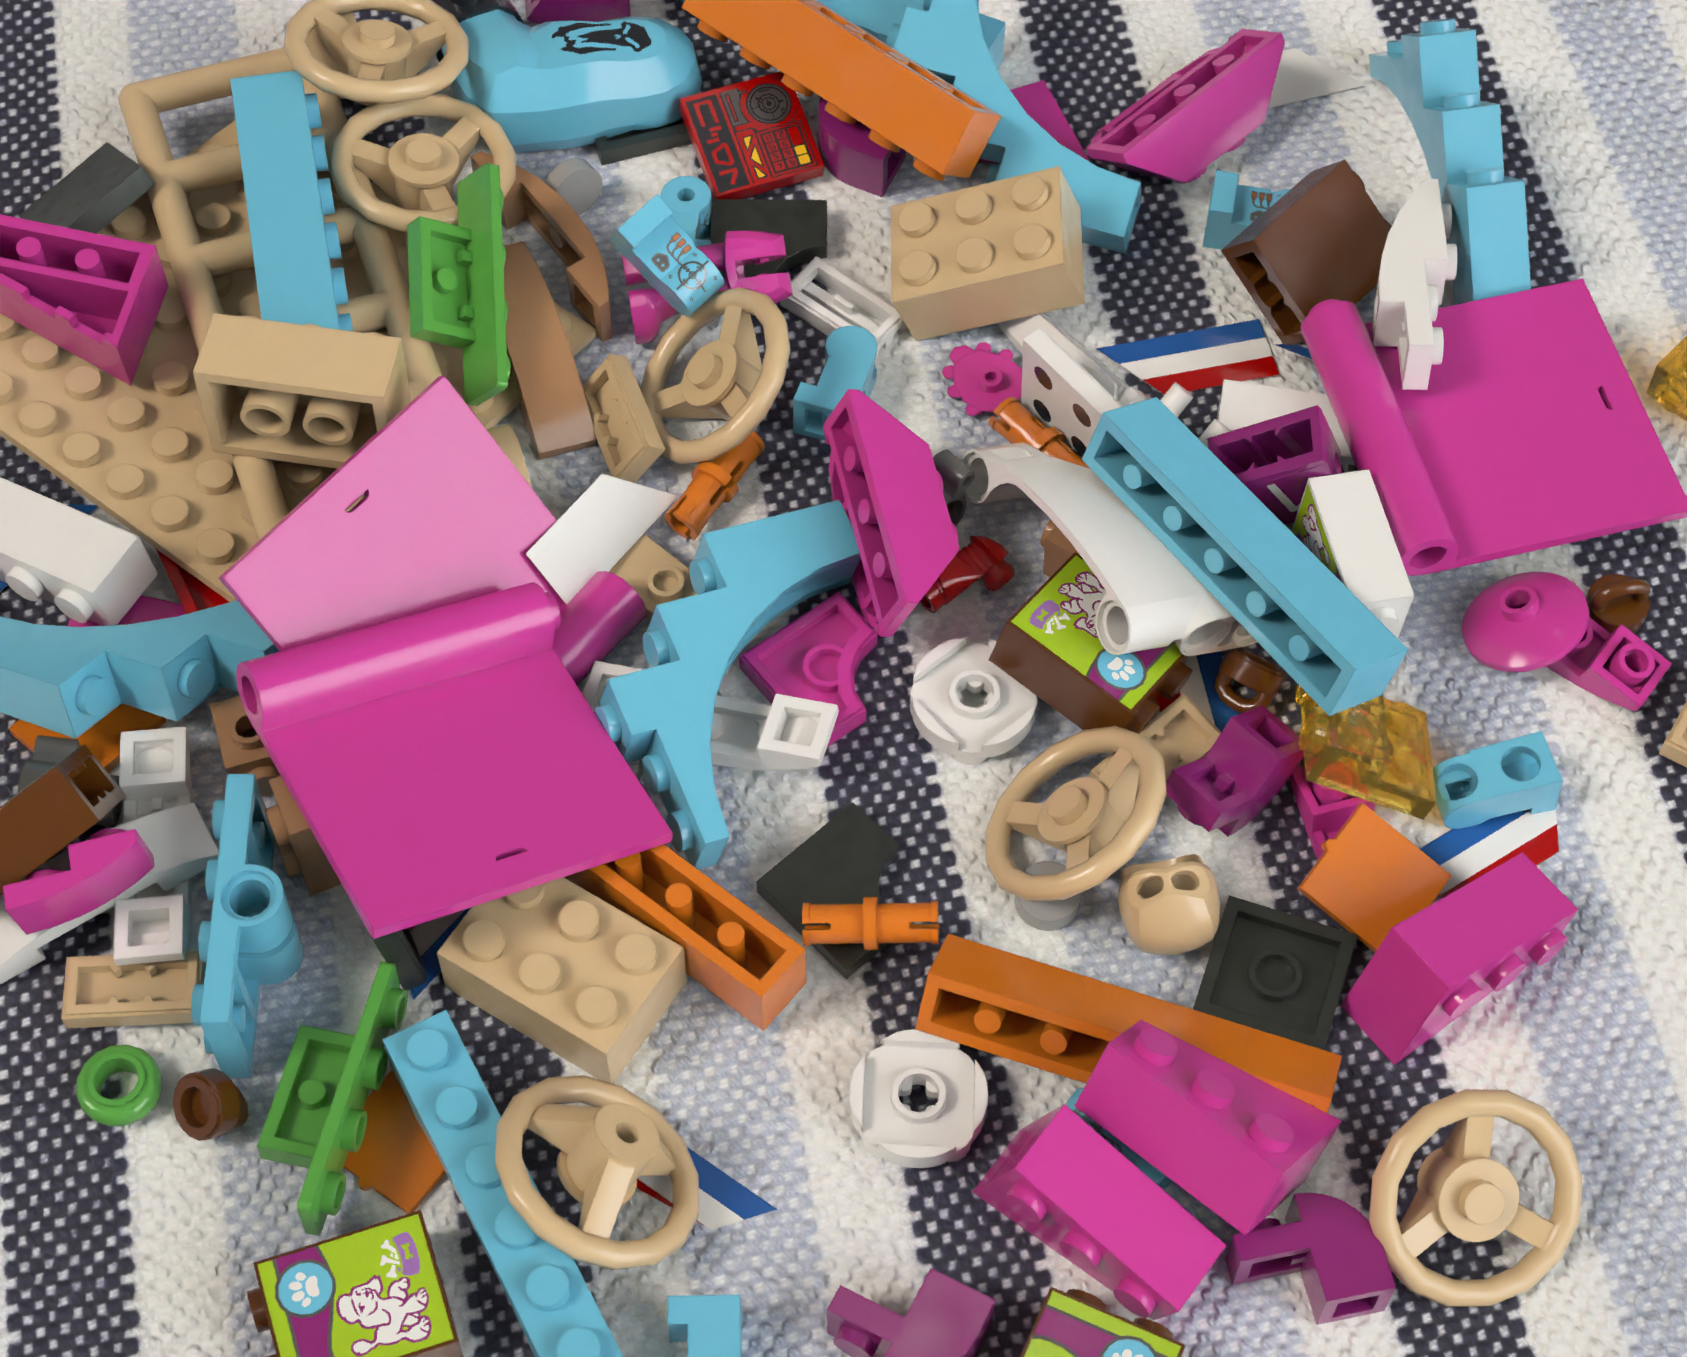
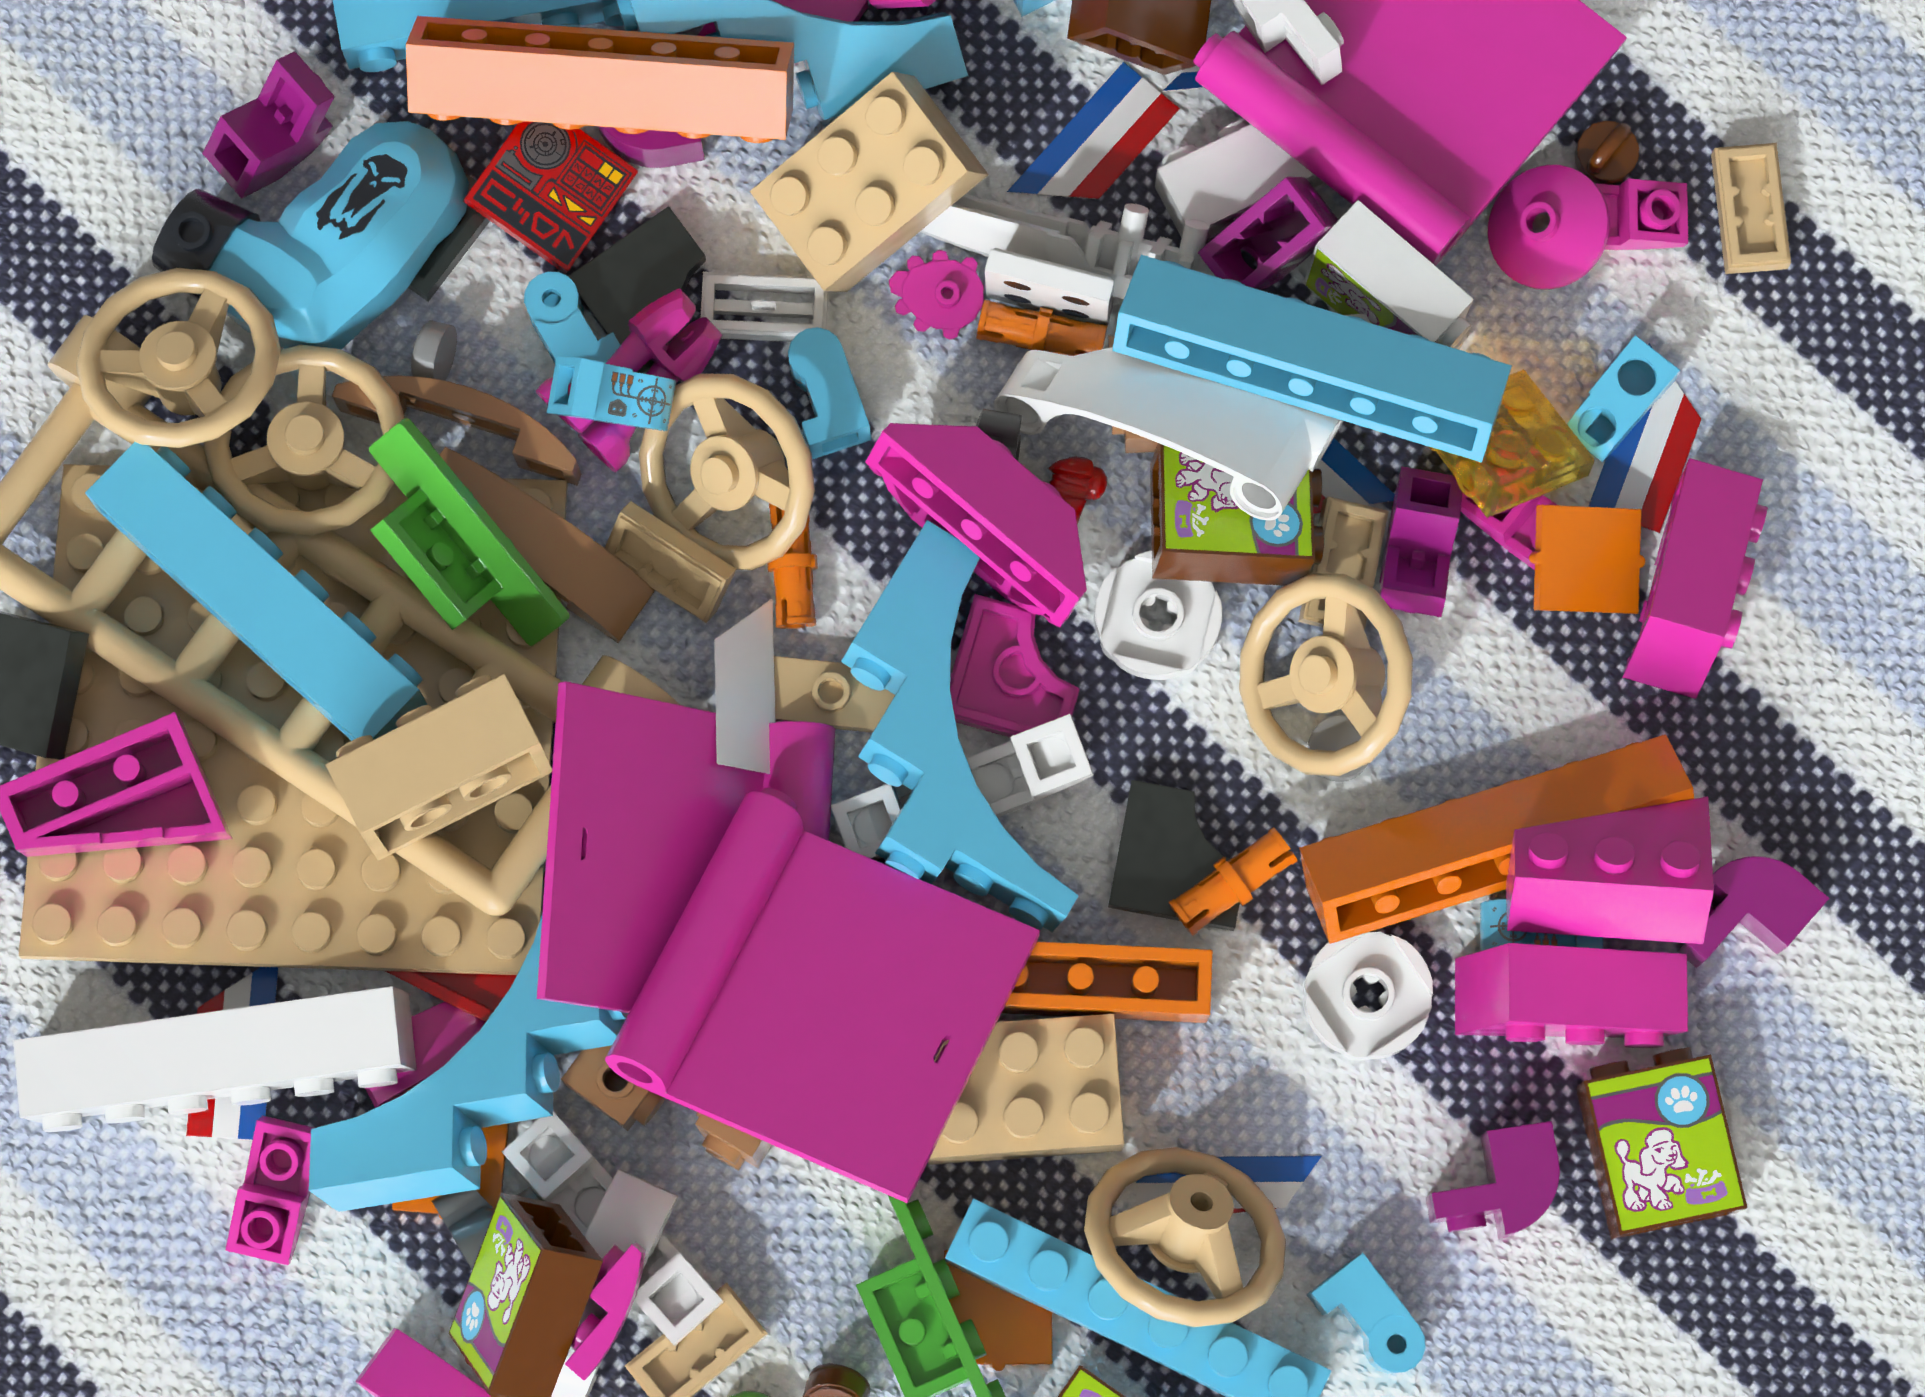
camera: 35 degrees left, 20 degrees up
(249, 932) = (731, 1227): medium azure plate -> none
(1169, 905) = (1450, 694): tan helmet -> none
(1252, 672) = (1357, 441): reddish brown tile -> none
(1275, 972) = (1560, 693): pearl dark grey tile -> none
(1472, 1196) = (1837, 785): tan piece -> none

